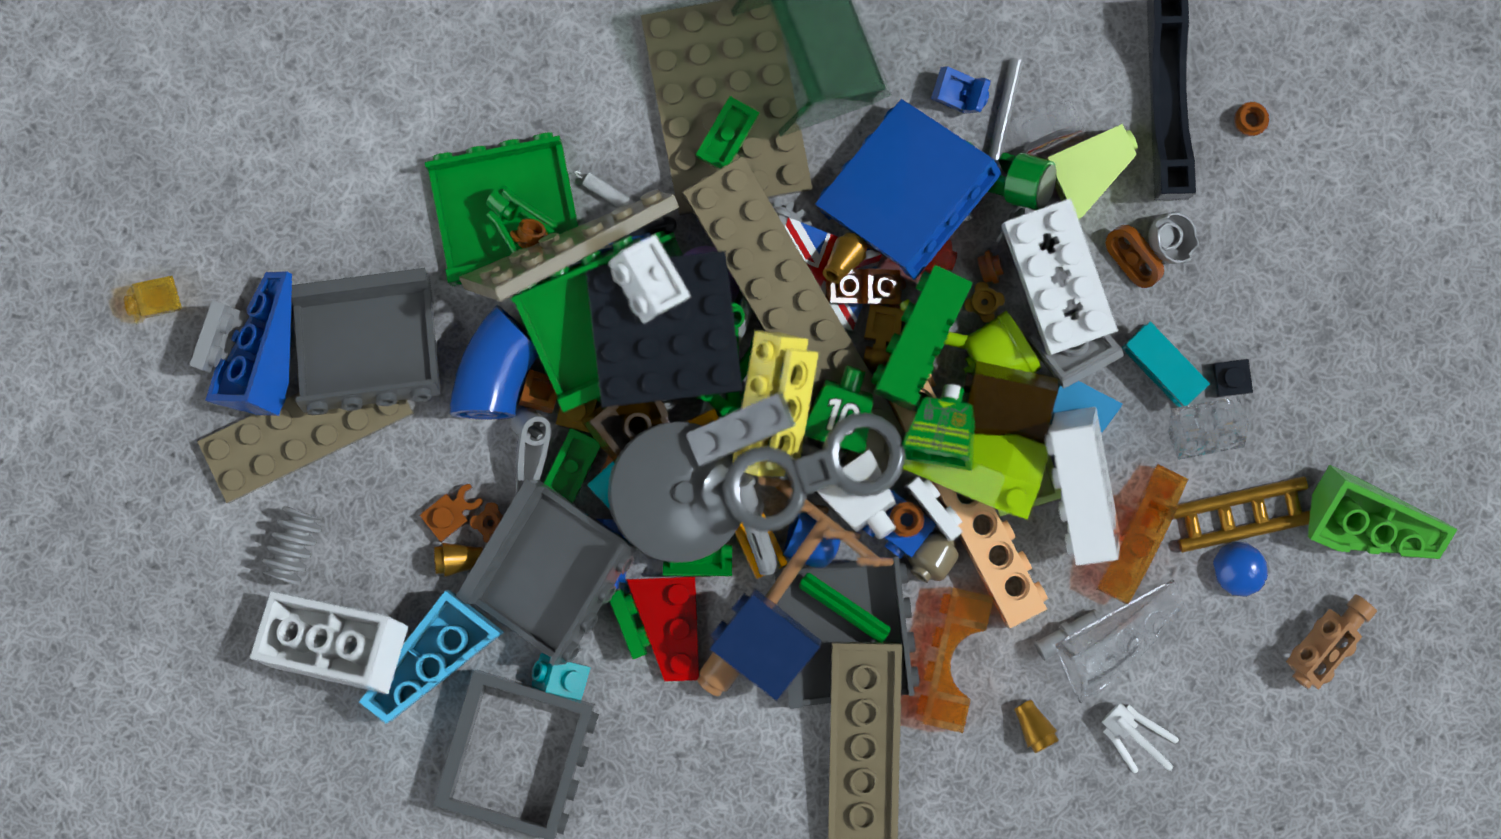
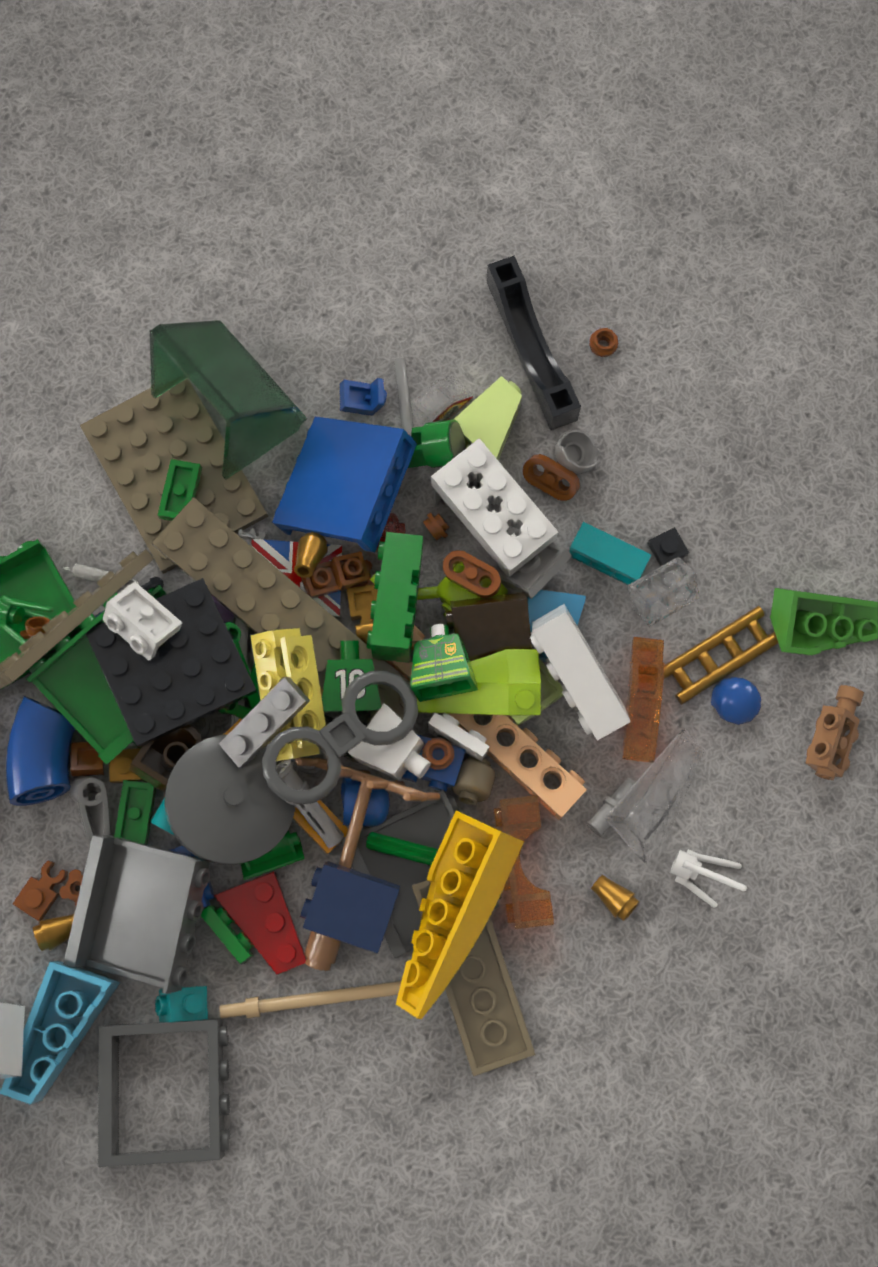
camera: 20 degrees left, 10 degrees down
(631, 705) = (254, 1007): none -> tan bar
(878, 674) = (461, 896): none -> yellow wedge
(982, 292) = (436, 549): pearl gold plate -> none
(1010, 341) = (472, 575): none -> dark orange plate

